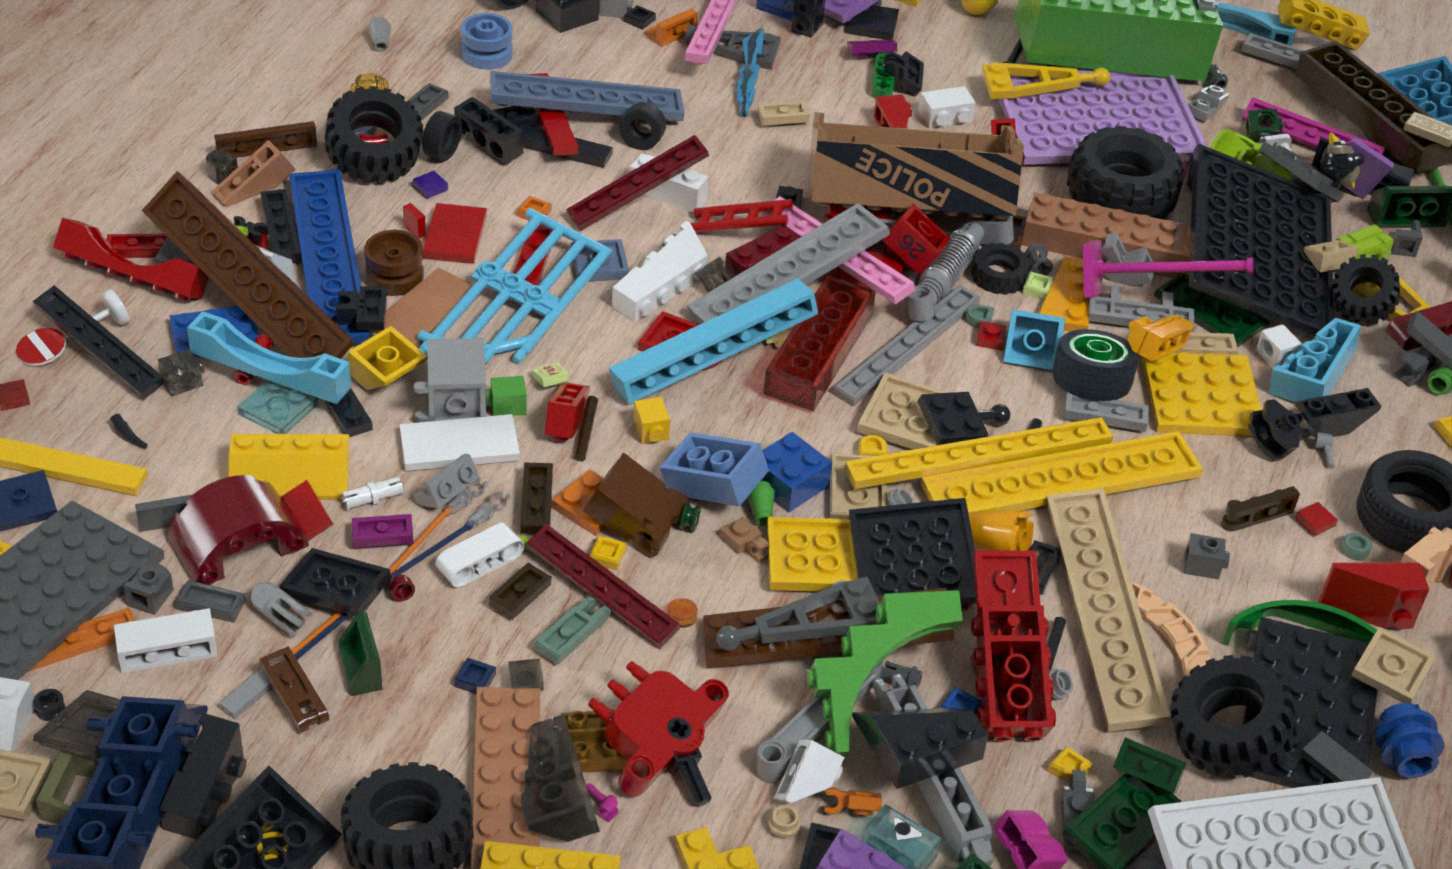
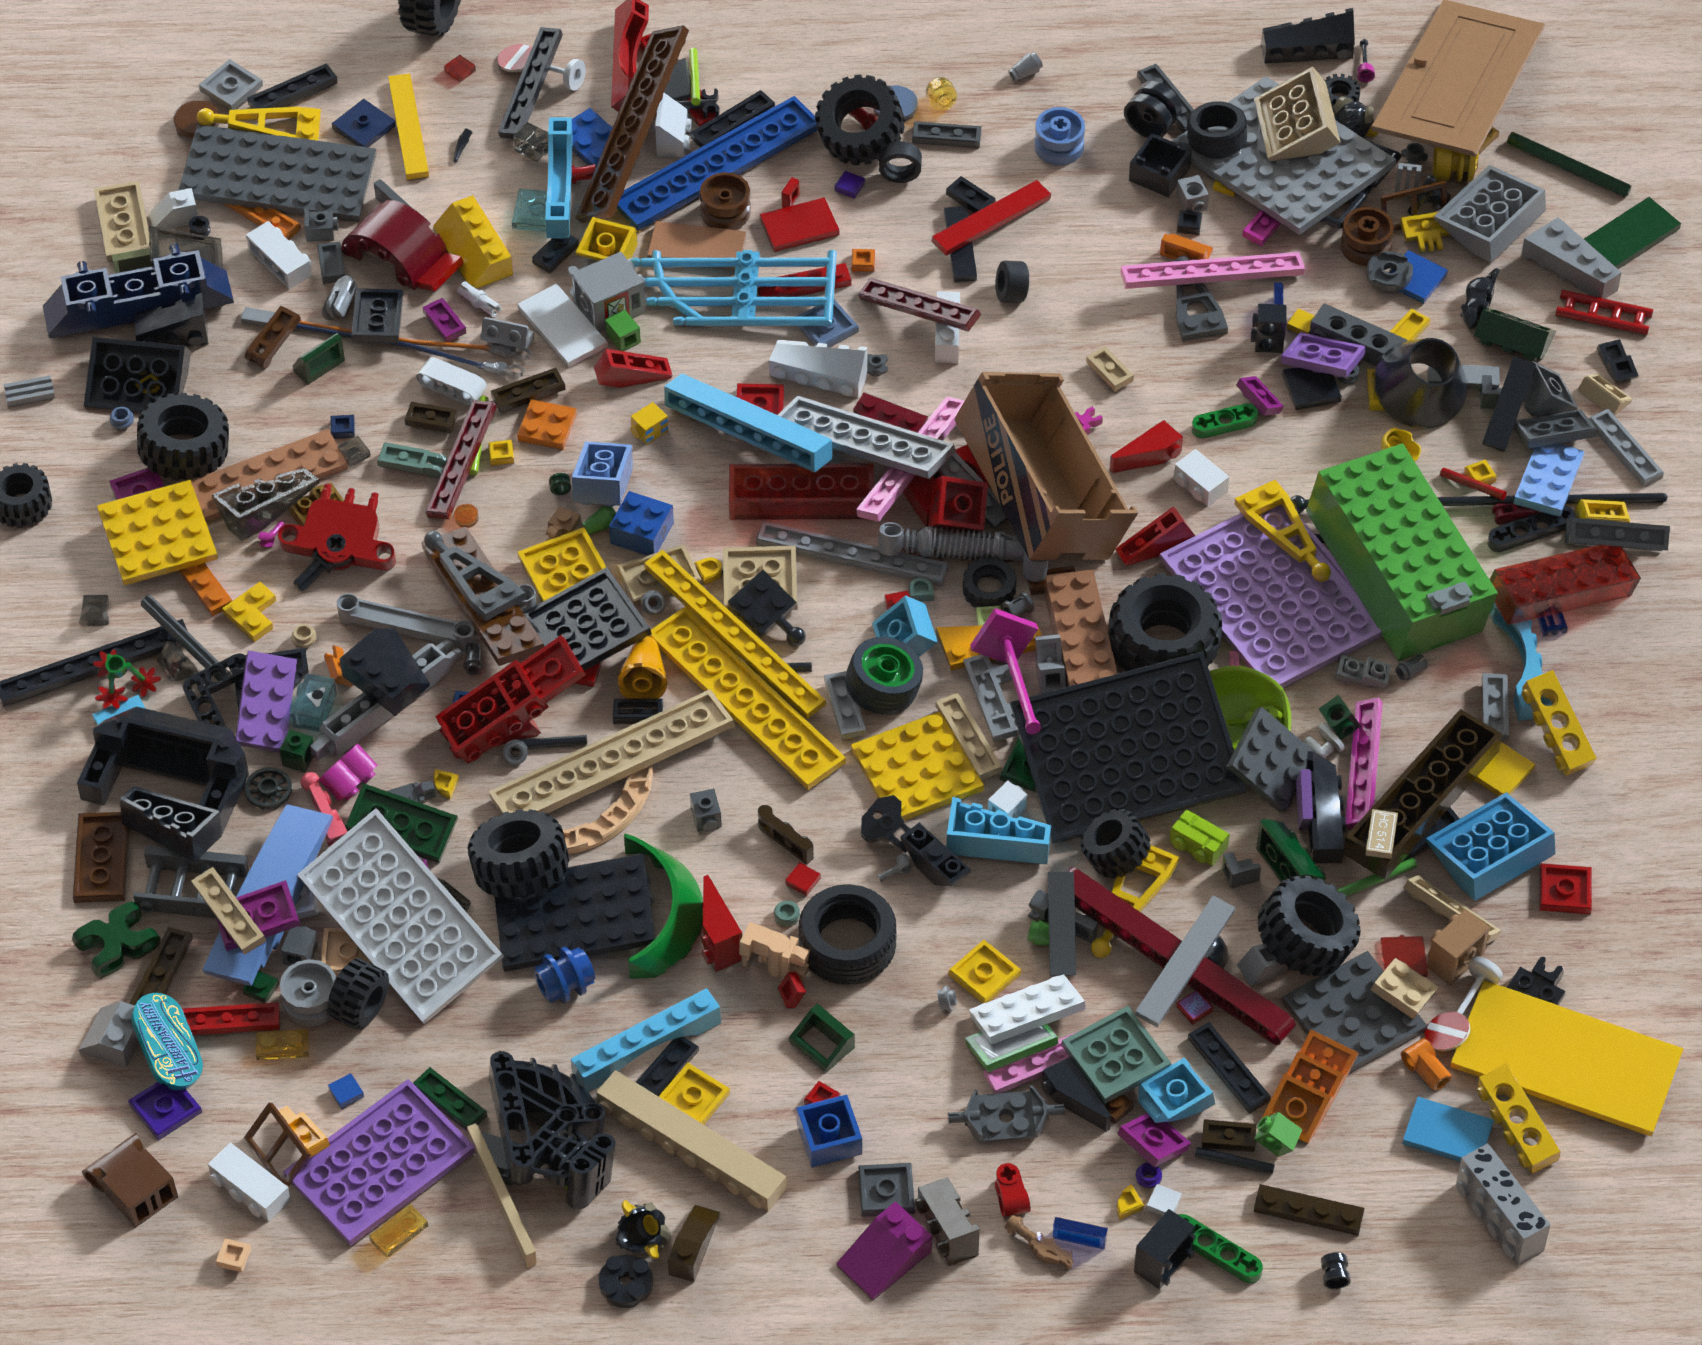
camera: 70 degrees right, 10 degrees up
(220, 165) = (779, 53): clear smoke plate -> none
(259, 173) = (783, 79): nougat slope -> none
(282, 137) = (822, 58): reddish brown tile -> none
(363, 310) = (656, 208): black plate -> none
(401, 587) = (397, 353): dark red hinge -> none
(490, 130) = (931, 187): black brick -> none
(551, 375) = (666, 346): yellowish green tile -> none
(581, 95) = (1023, 229): sand blue plate -> none
(586, 428) = (623, 391): dark brown bar -> none
(636, 505) = (540, 443): reddish brown piece -> none
(712, 274) = (844, 397): clear smoke tile -> none
(749, 74) = (1154, 324): dark azure sword -> none
(751, 221) = (935, 379): red bar -> none
(809, 772) = (344, 630): white slope -> none
(903, 620) = (448, 612): bright green arch -> none
(908, 70) = (1238, 435): black hinge -> none
(1150, 765) = (444, 818): dark green tile -> none
(1160, 336) = (934, 703): light orange piece -> none
(1330, 255) = (1154, 808): tan slope -> none
(1334, 760) = (517, 933): dark grey tile -> none
(1341, 162) = (1284, 776): black hair -> none
(1394, 665) = (624, 942): tan plate -> none

